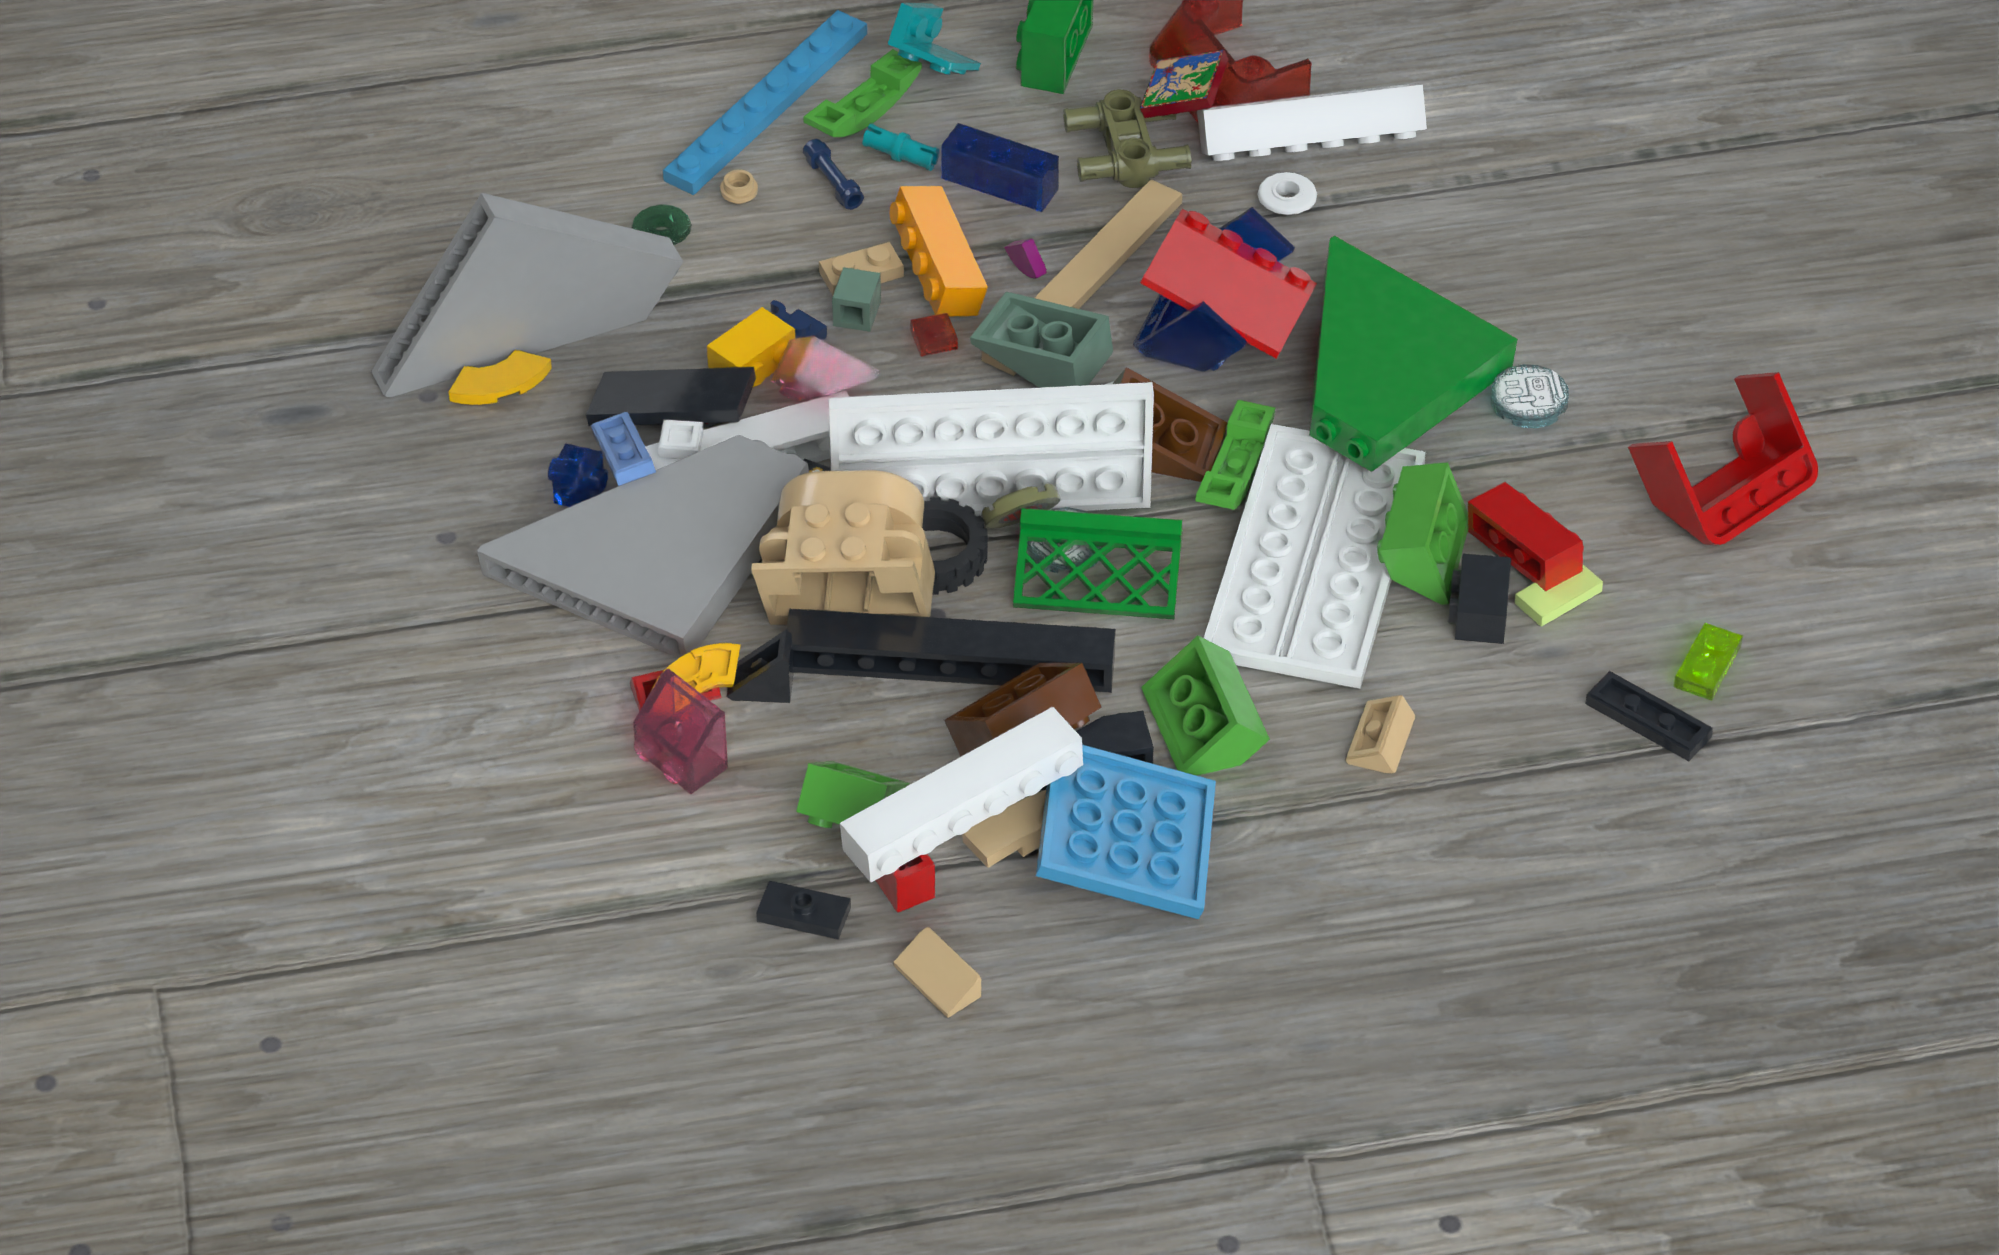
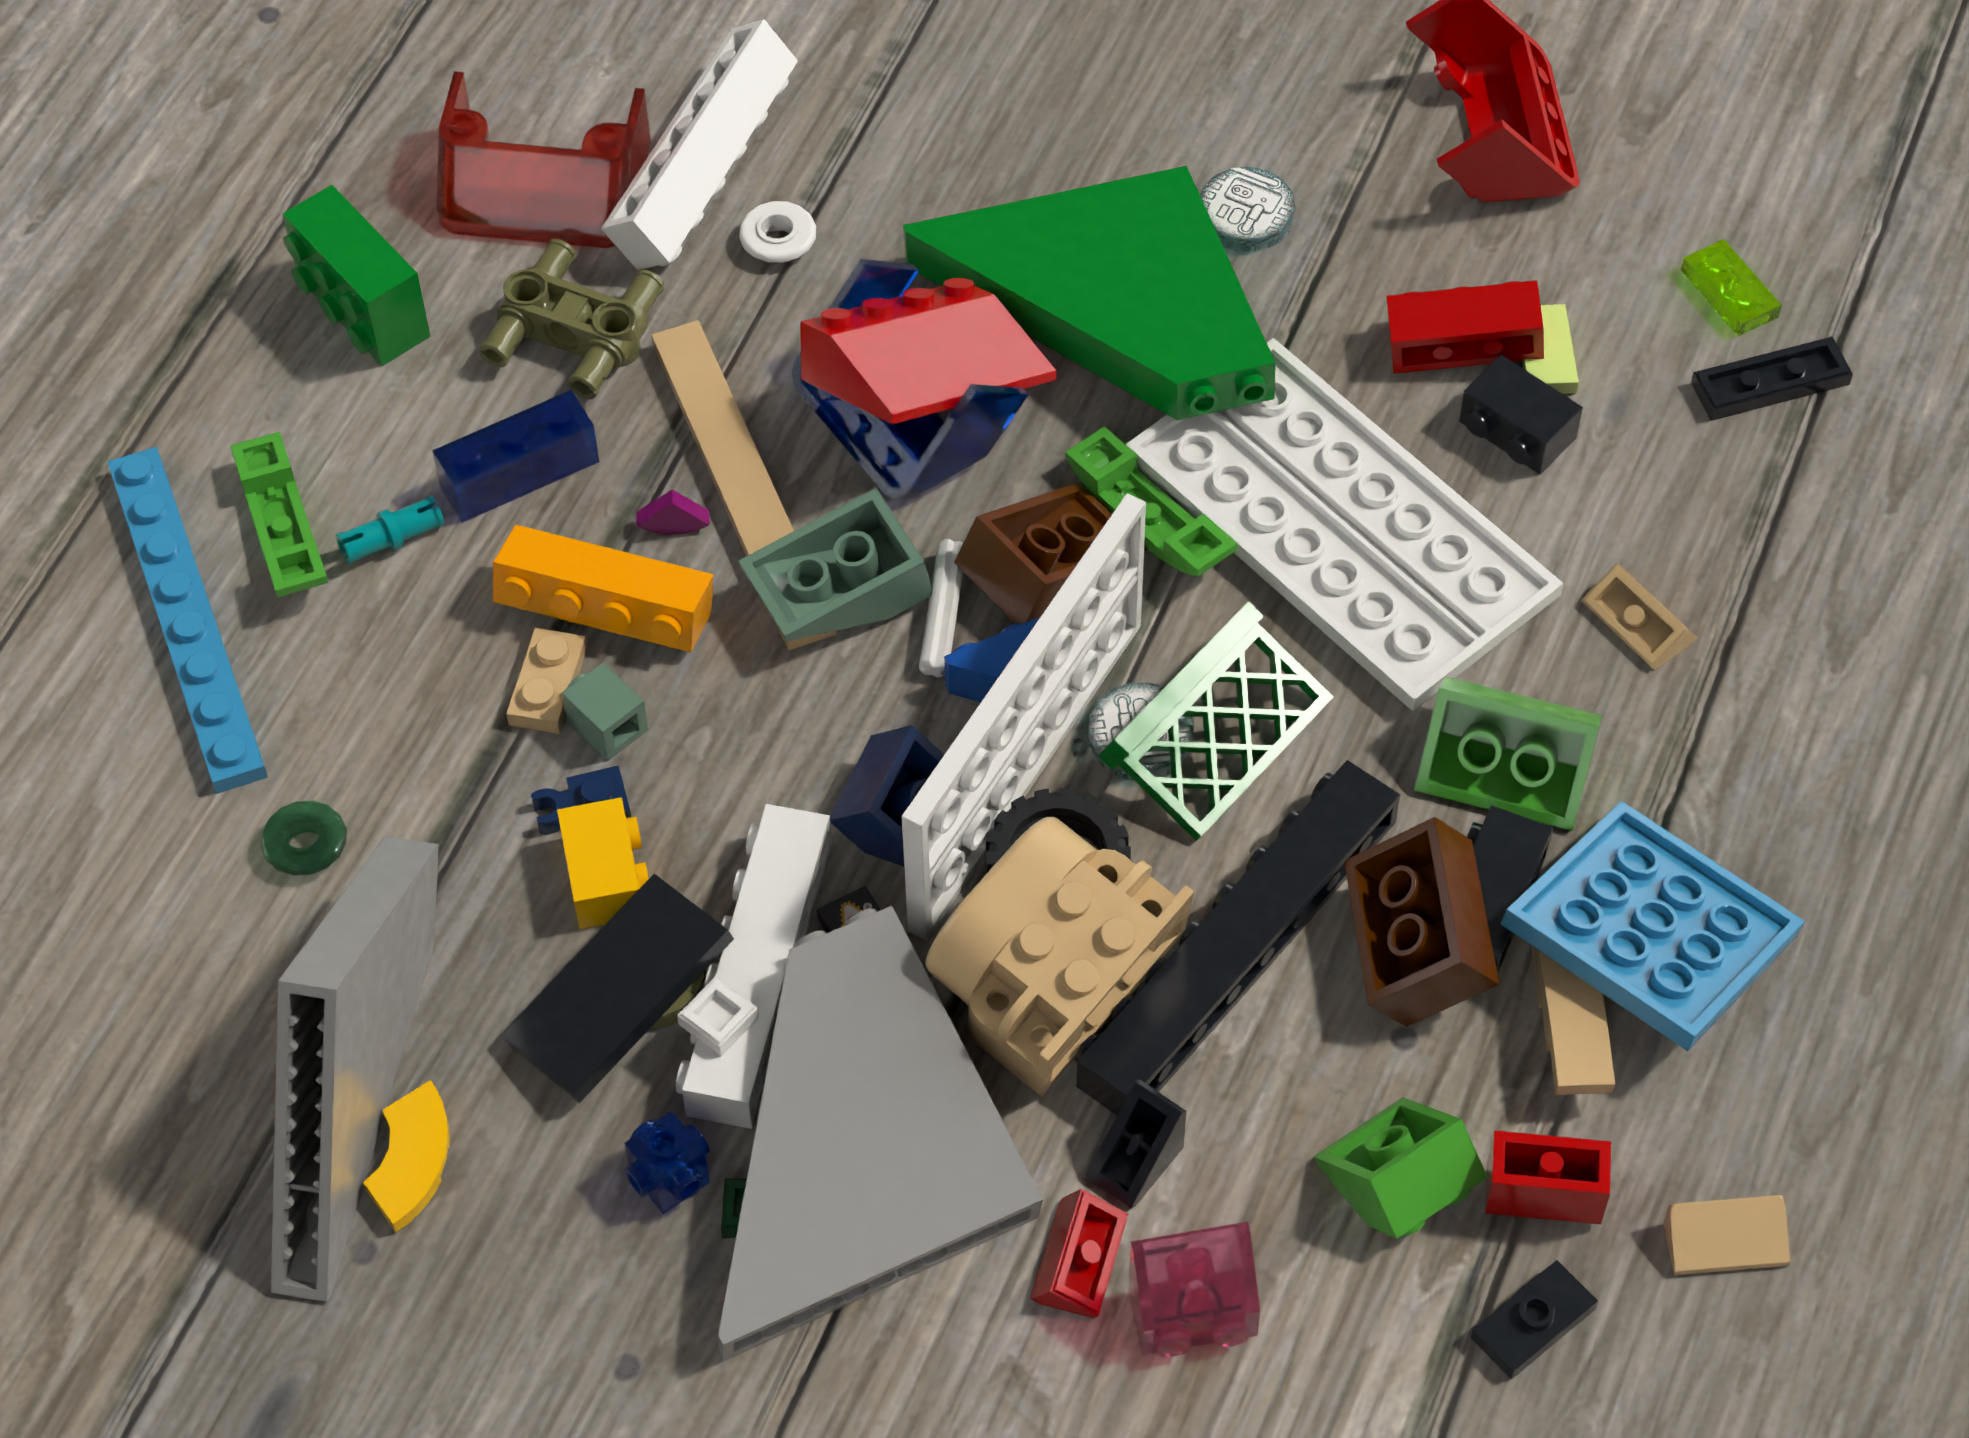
camera: 55 degrees left, 10 degrees up
(623, 448) = (686, 1085): medium blue tile -> none
(708, 666) = (1096, 1224): yellow tile -> none
(738, 187) = (306, 712): tan plate -> none
(818, 369) = (718, 815): clear pink slope -> none
(846, 191) = (326, 615): dark blue bar -> none
(913, 36) = (263, 418): teal bracket -> none
(934, 334) = (713, 671): clear red plate -> none
(961, 794) = (1553, 1053): white brick -> none
(1008, 508) = (1089, 740): olive tile -> none
(1184, 84) = (567, 214): tile -> none
(1425, 531) = (1402, 401): bright green slope -> none

